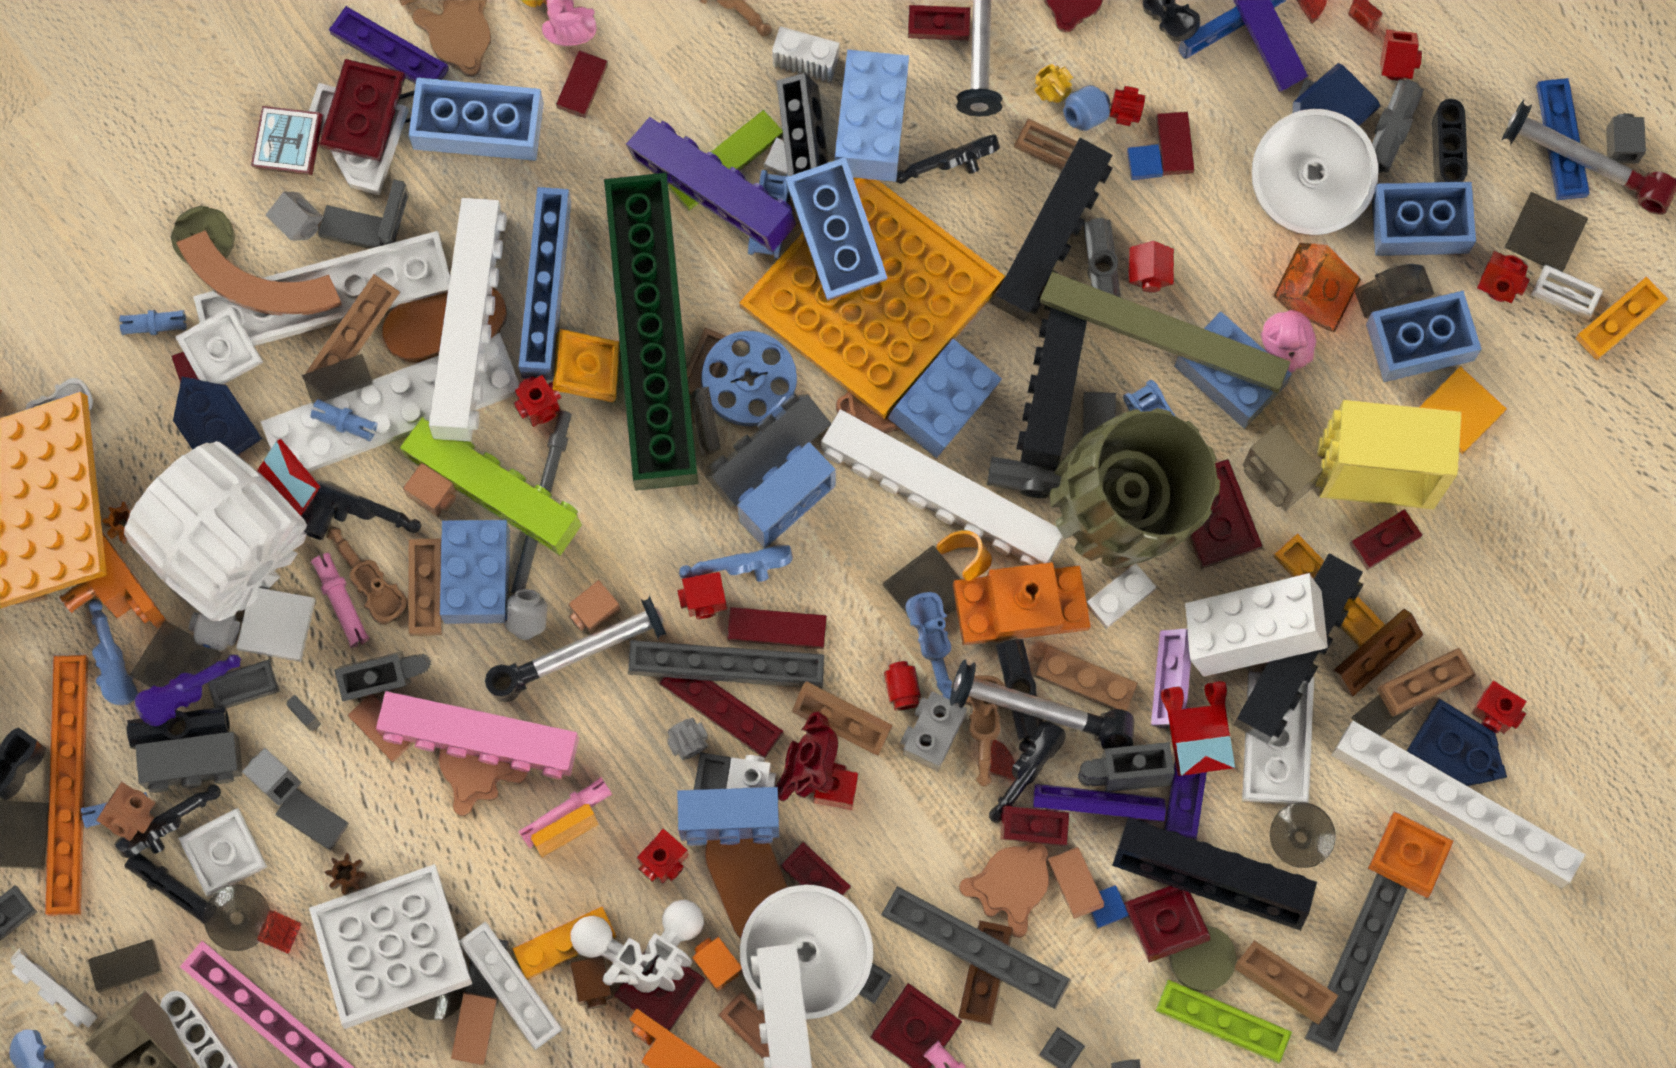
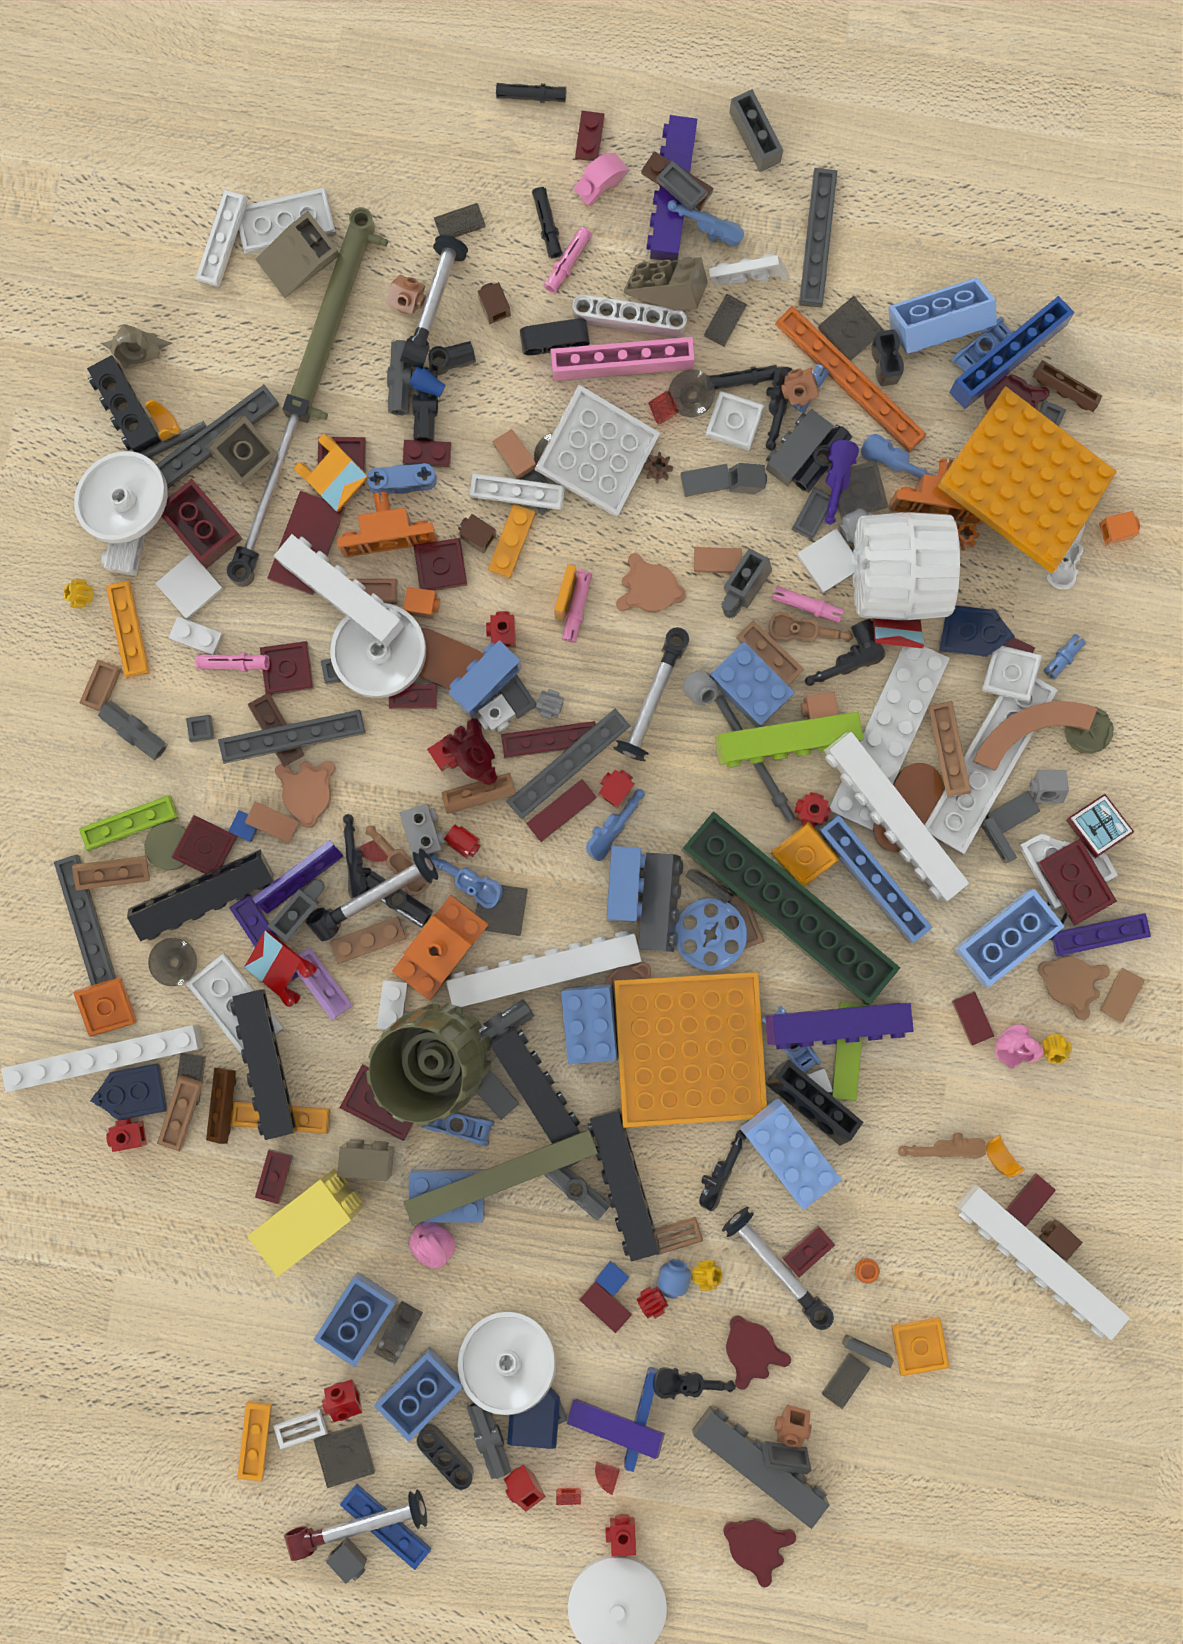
camera: 135 degrees right, 10 degrees up
(303, 713) = (767, 527): dark grey tile -> none
(338, 379) = (931, 718): clear smoke tile -> none
(344, 420) = (904, 698): medium blue pin -> none
(477, 734) = (662, 599): bright pink brick -> none
(593, 608) = (668, 726): nougat brick -> none
(681, 922) = (494, 551): white piece -> none
(805, 54) = (864, 1157): white brick -> none
(836, 228) = (740, 1059): light blue brick -> none
(967, 539) = (484, 954): light orange helmet -> none
(1034, 826) = (321, 830): dark red plate -> none
(1151, 266) = (548, 1214): red brick -> none
(1256, 625) = (295, 1051): white brick -> none
(1317, 285) = (445, 1294): clear orange slope -> none
(1476, 404) = (299, 1296): light orange tile -> none

